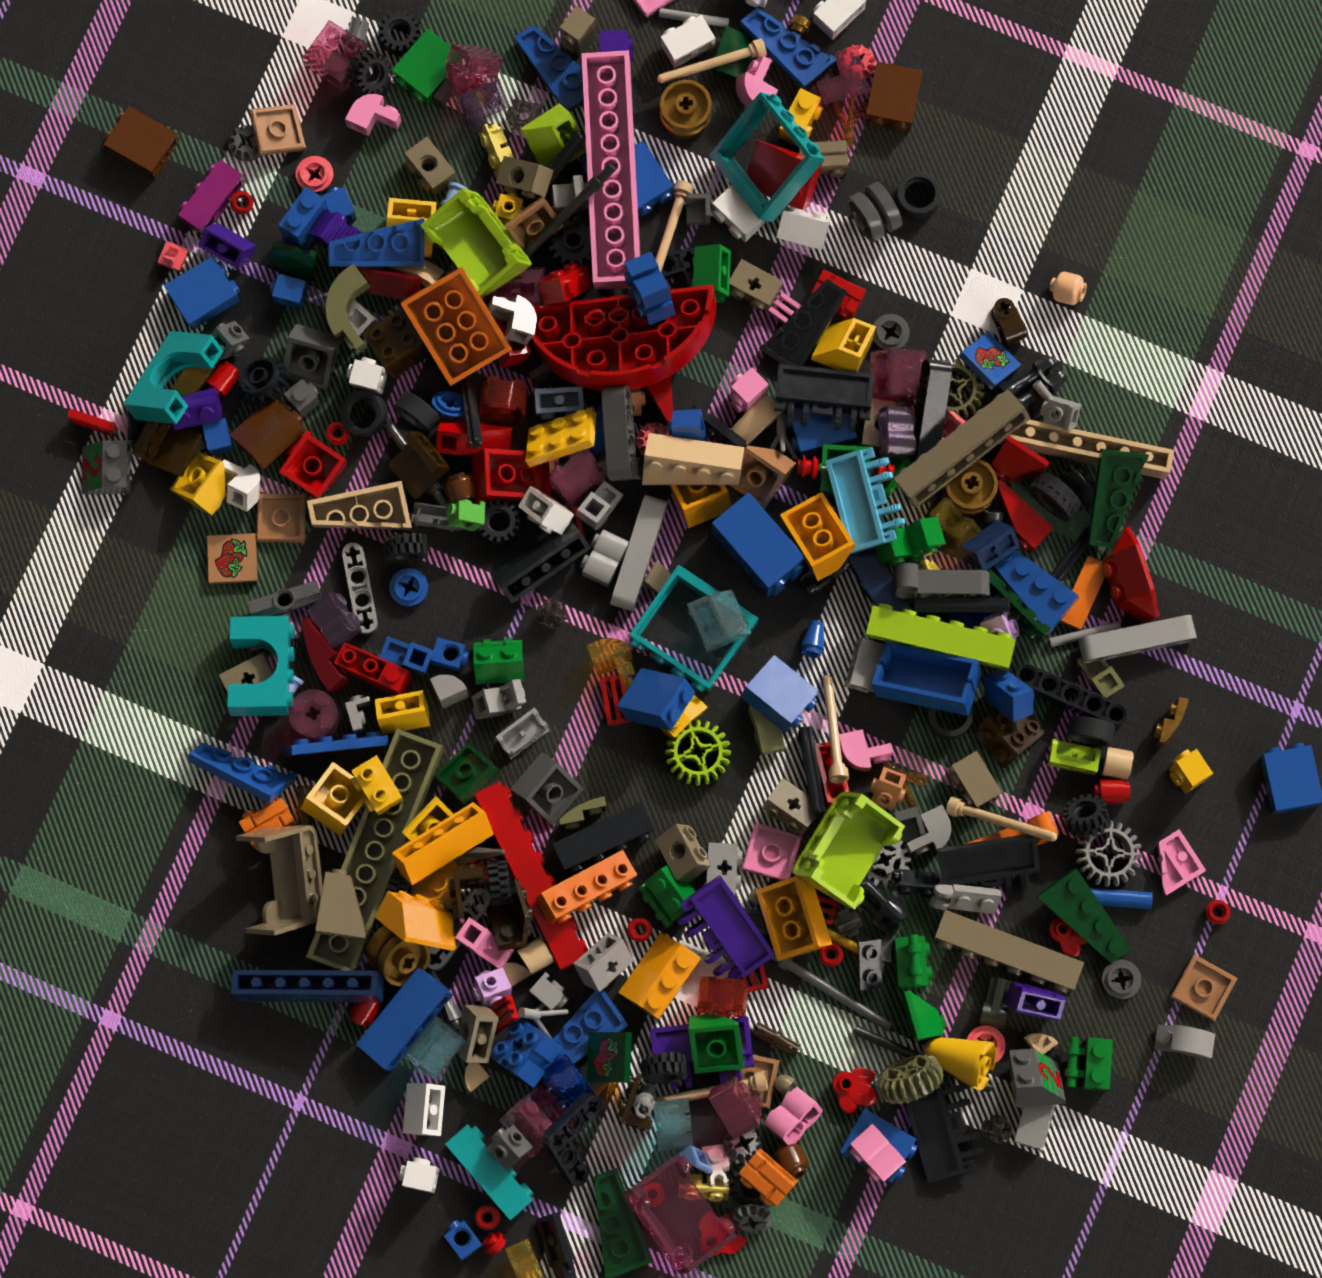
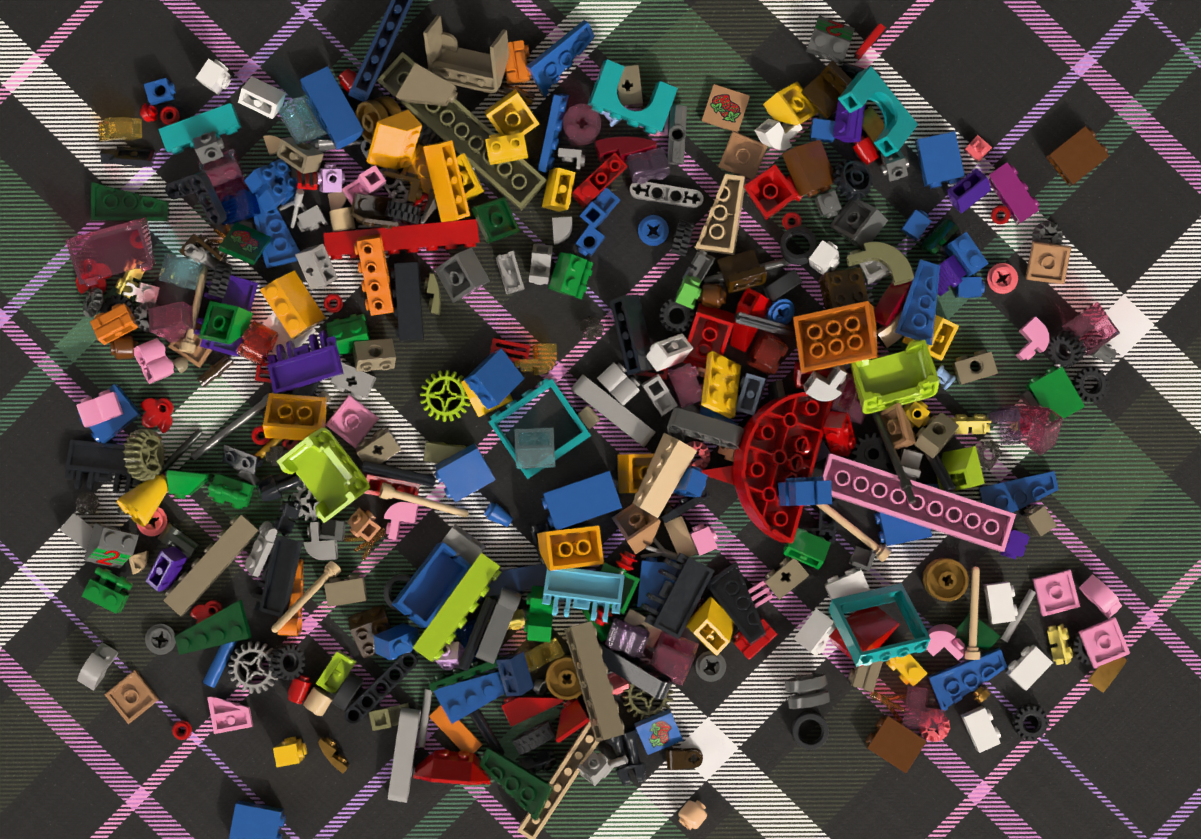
camera: 115 degrees right, 10 degrees up
(697, 1158) = (148, 278): medium blue slope -> none

